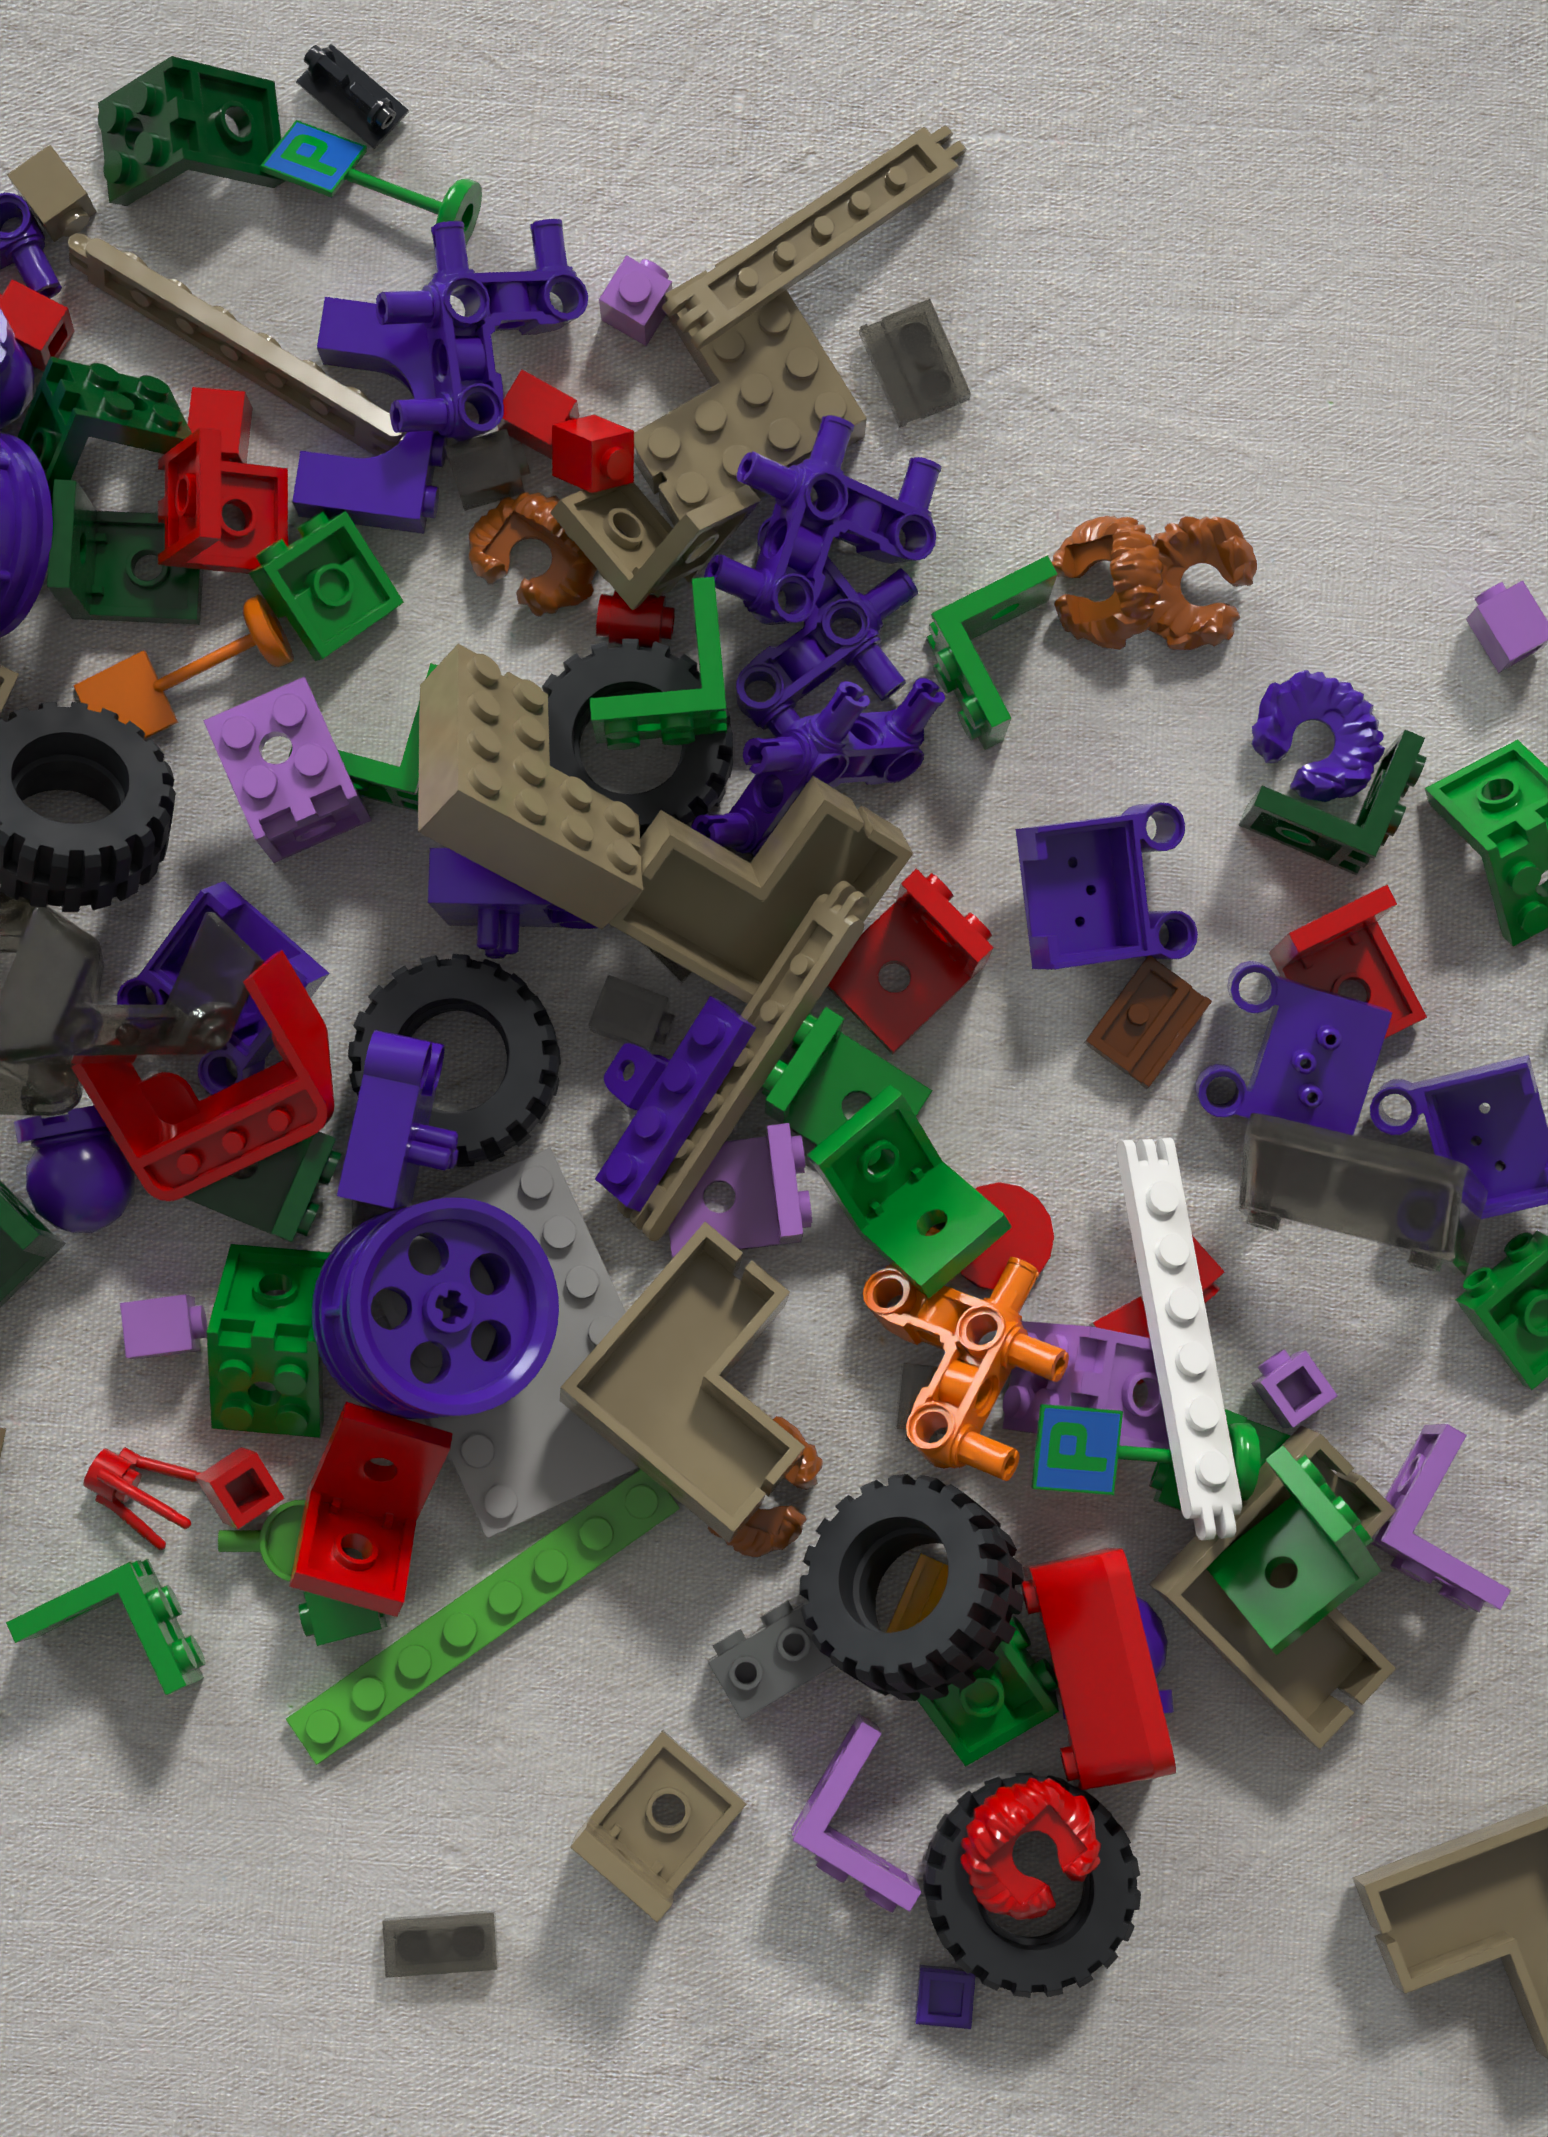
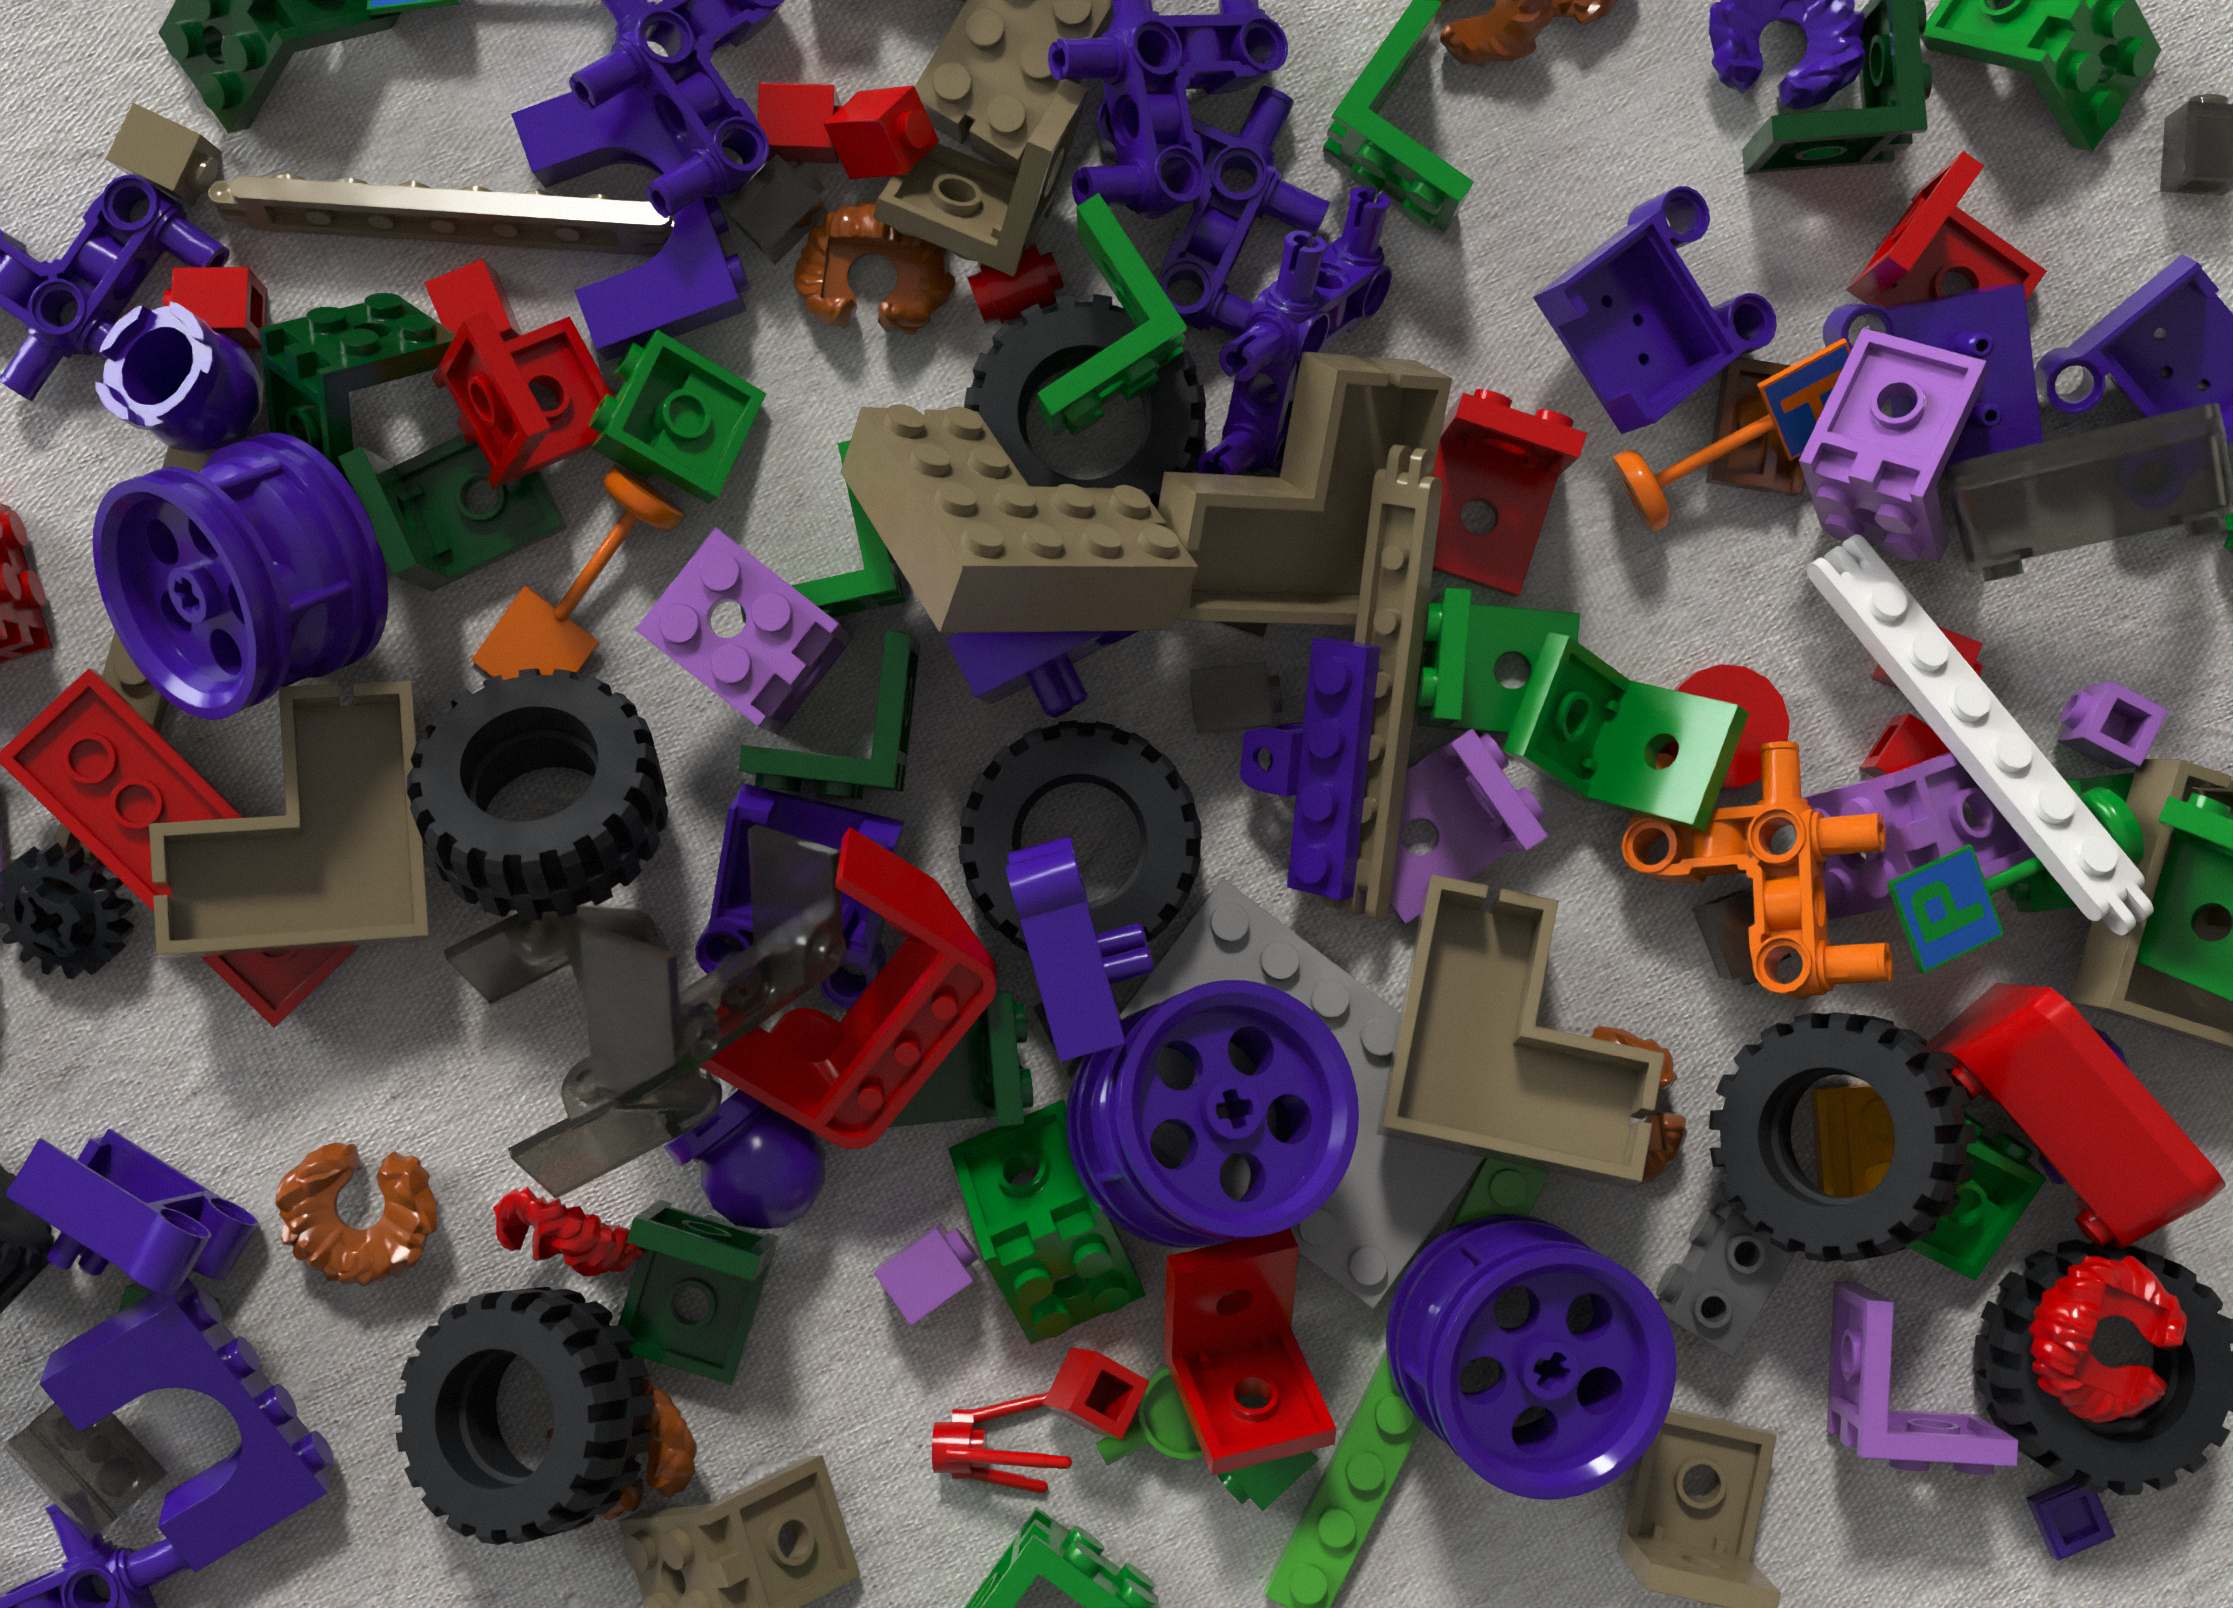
camera: 25 degrees left, 5 degrees up
(350, 910) = (849, 775): none -> dark green bracket
(534, 1565) = (1598, 1387): none -> dark purple wheel
(1183, 1018) = (1794, 406): none -> orange piece
(1205, 1091) = (1883, 471): none -> medium lavender bracket

